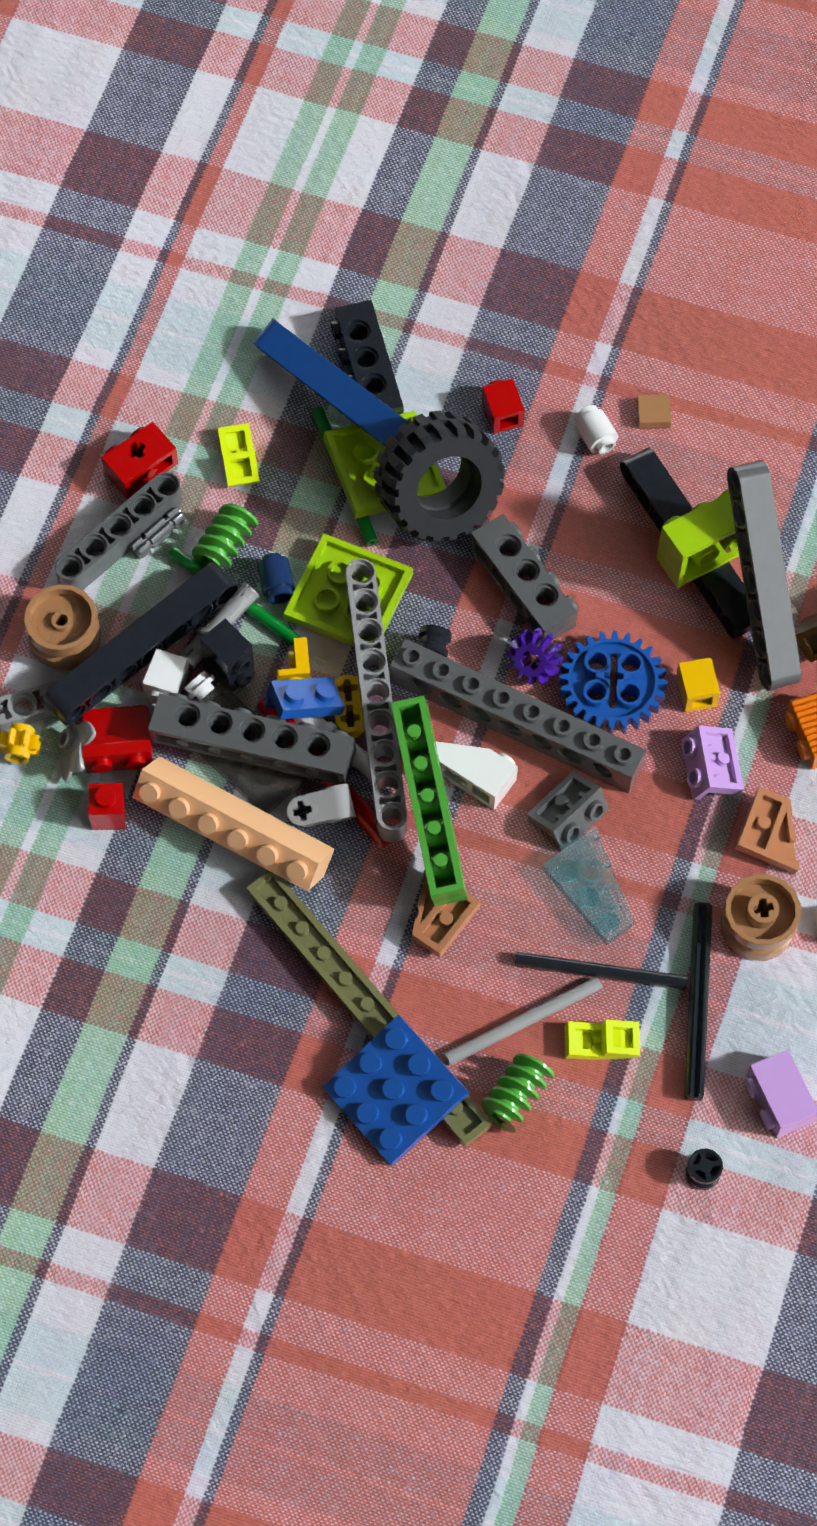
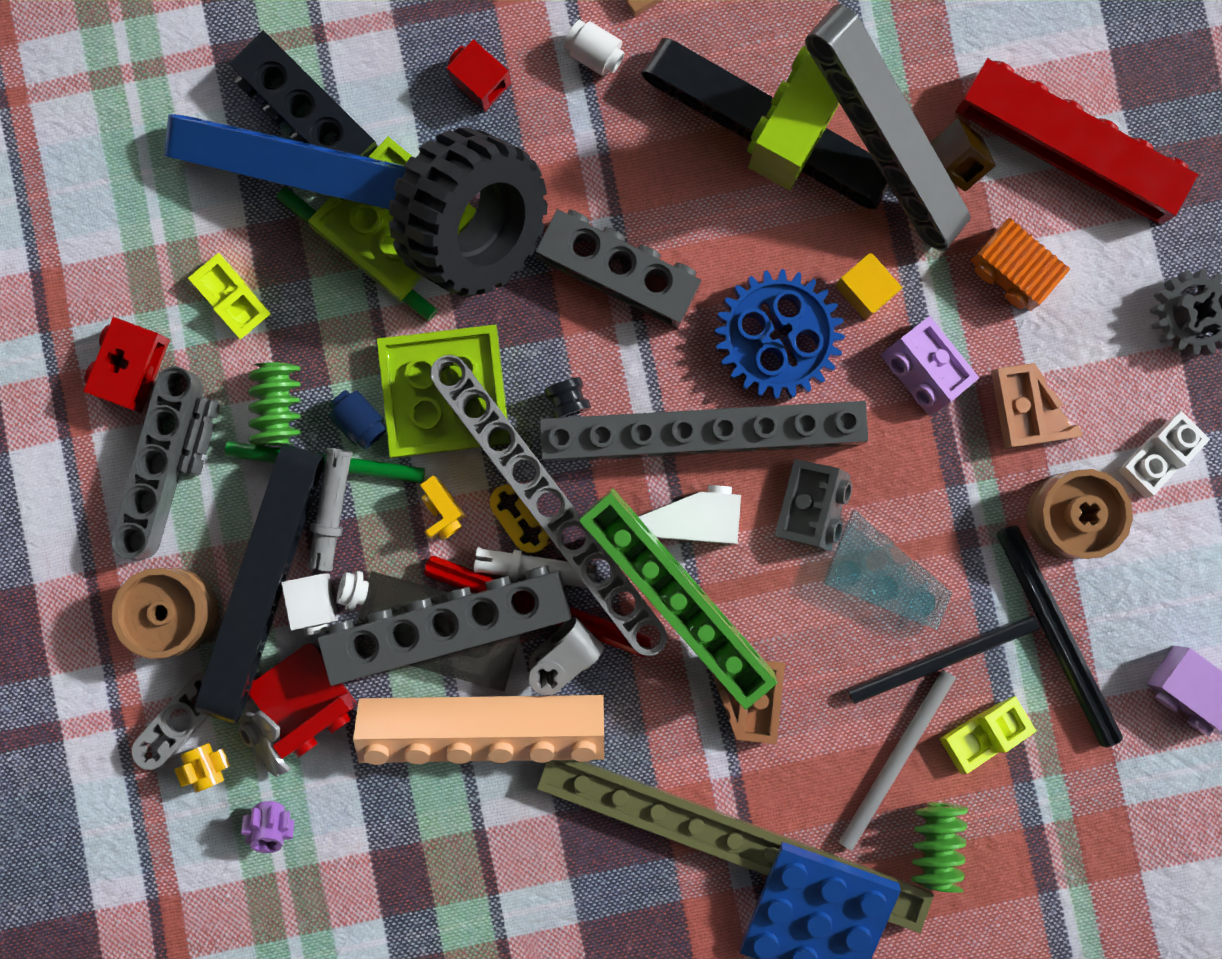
camera: 30 degrees left, 20 degrees up
(39, 807) = (267, 827): none -> medium lavender gear
(107, 806) = (338, 784): red brick -> none
(228, 656) = (363, 547): black brick -> none
(304, 698) = (474, 549): blue bracket -> none
(535, 667) = (684, 355): dark purple gear -> none
(704, 1161) = (1176, 819): black wheel -> none

